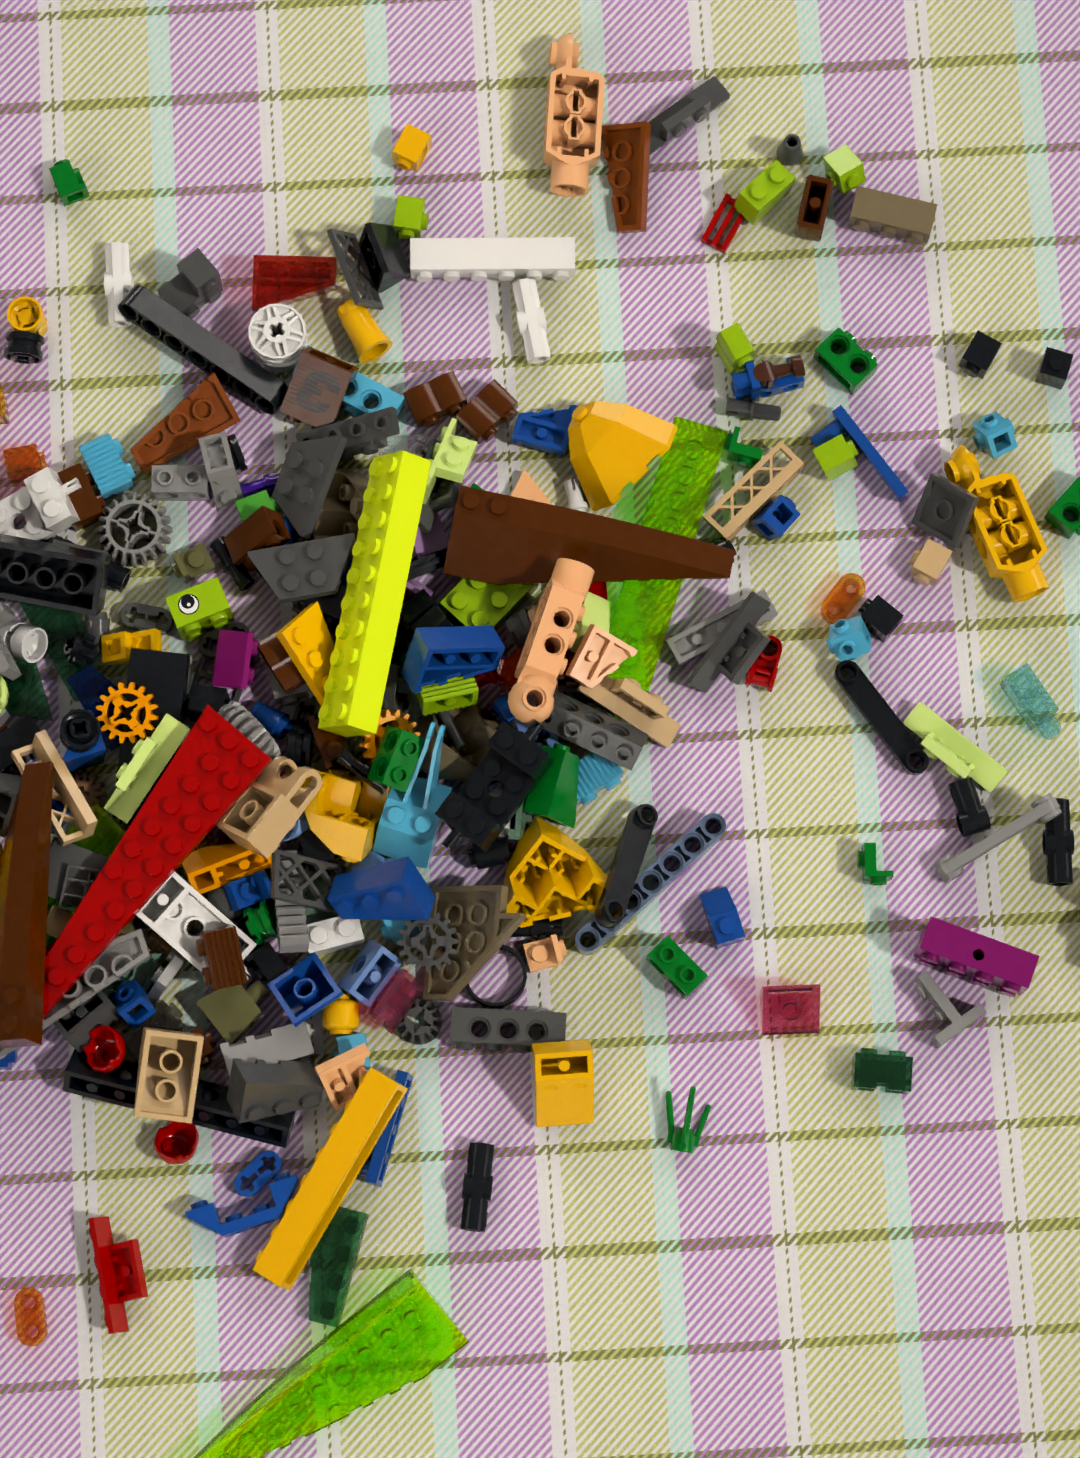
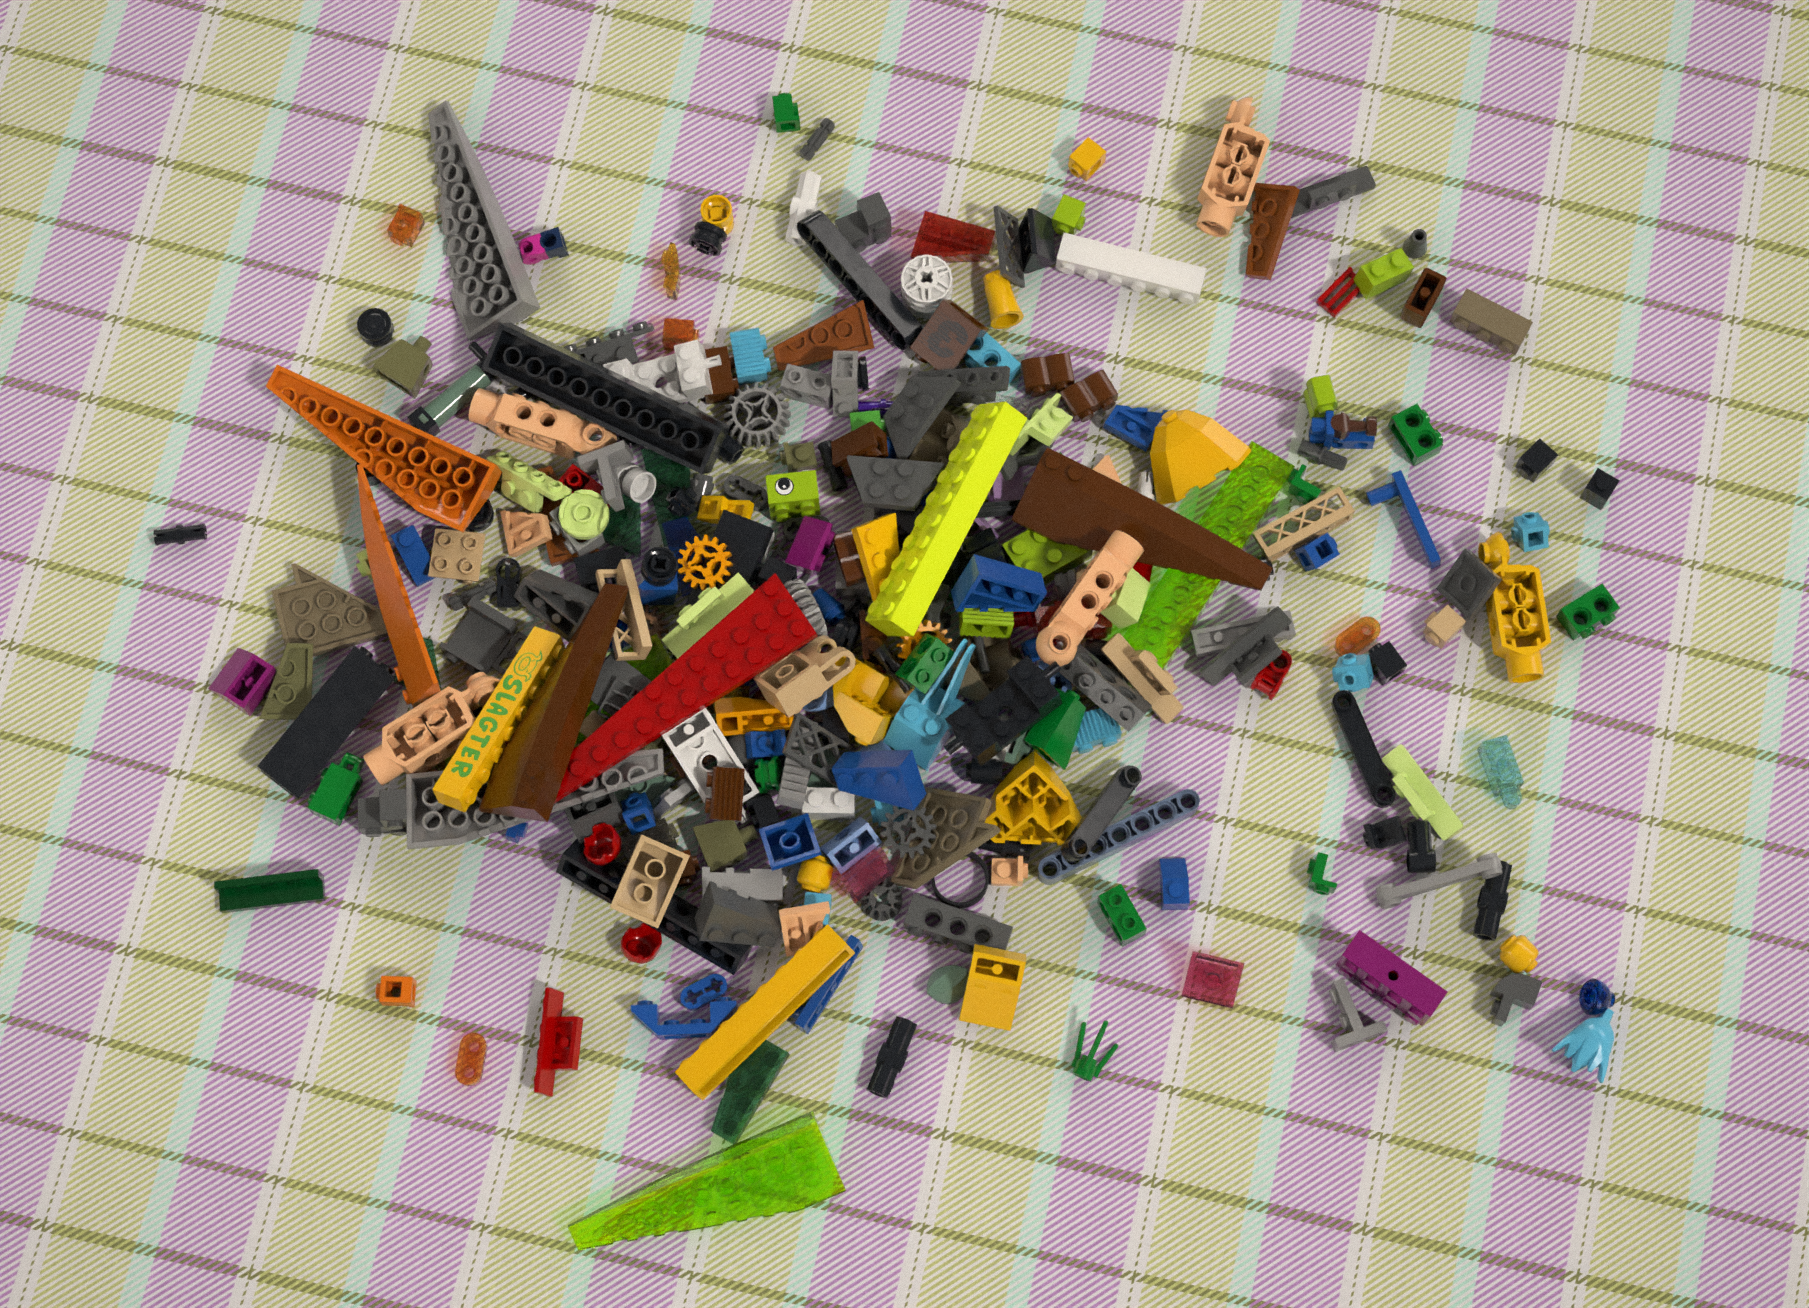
camera: 20 degrees right, 5 degrees down
(111, 202) = (817, 139): none -> dark grey axle
(513, 1091) = (947, 984): none -> sand green piece
(531, 321) = (1149, 330): white piece -> none
(598, 656) = (1126, 625): light nougat wing -> none
(836, 456) = (1385, 513): lime brick -> none
(844, 169) = (1459, 272): lime brick -> none
(881, 1070) = (1279, 1056): clear green brick -> none
(927, 803) = (1384, 834): none -> black bracket

